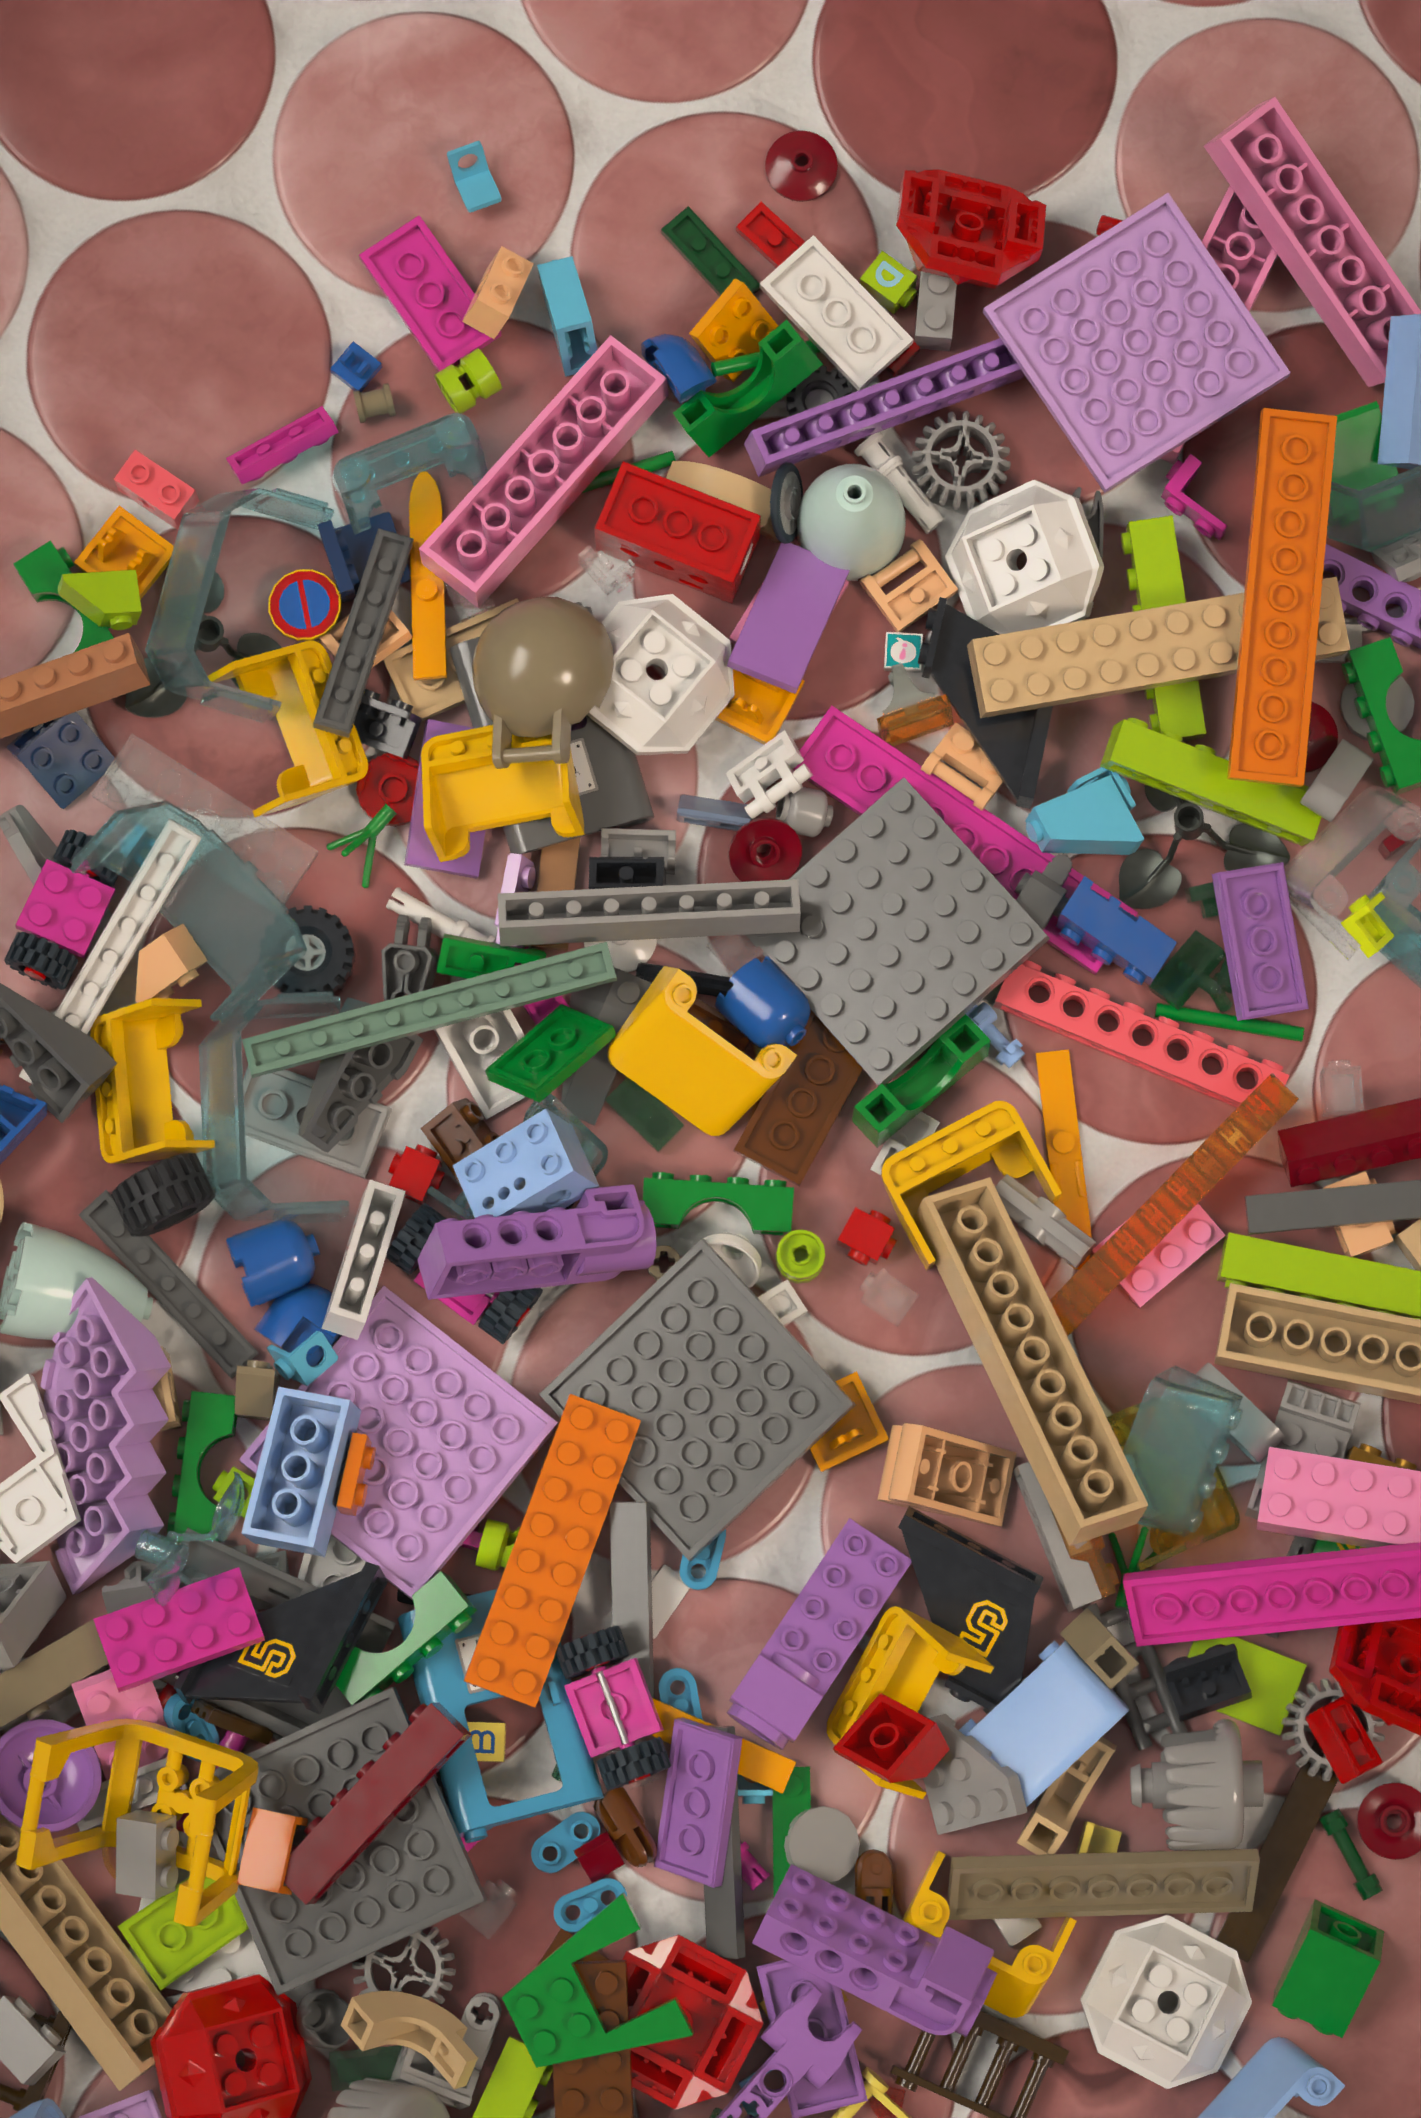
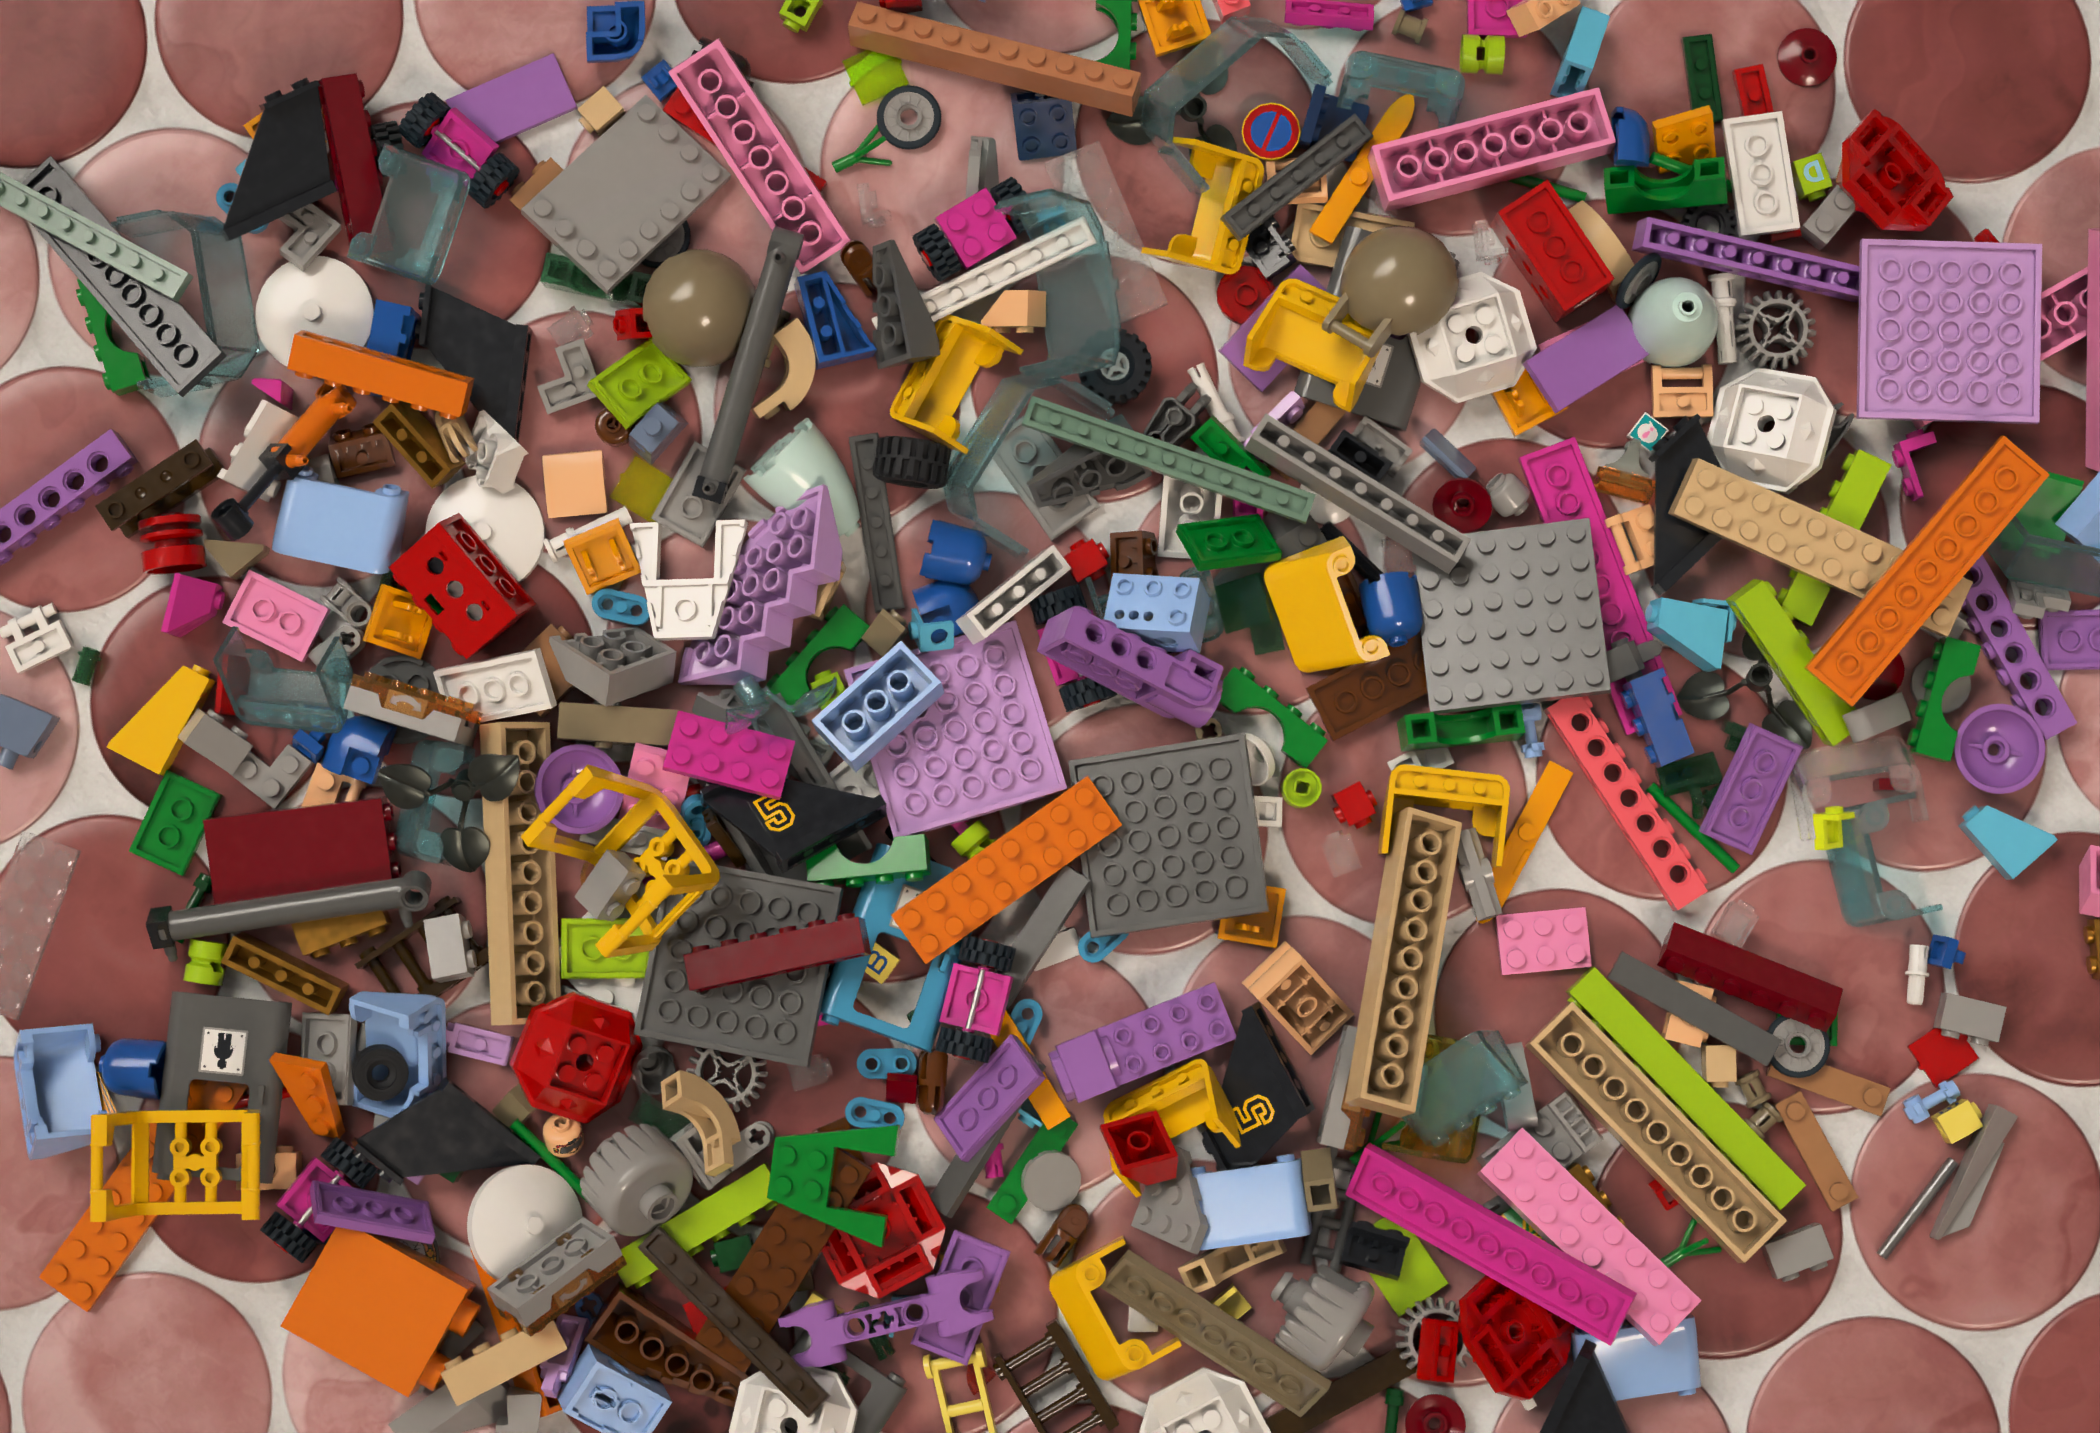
camera: 40 degrees right, 5 degrees up
(104, 597) = (1141, 37): lime slope -> none
(268, 1850) = (690, 938): orange panel -> none
(352, 1490) = (903, 741): orange plate -> none
(355, 839) = (1200, 312): green plant -> none
(609, 1106) = (1243, 603): none -> clear green piece
(765, 767) = (1498, 448): white plate -> none
(877, 1956) = (1036, 1278): medium lavender brick -> none
(1172, 1202) = (1571, 921): clear orange beam -> none

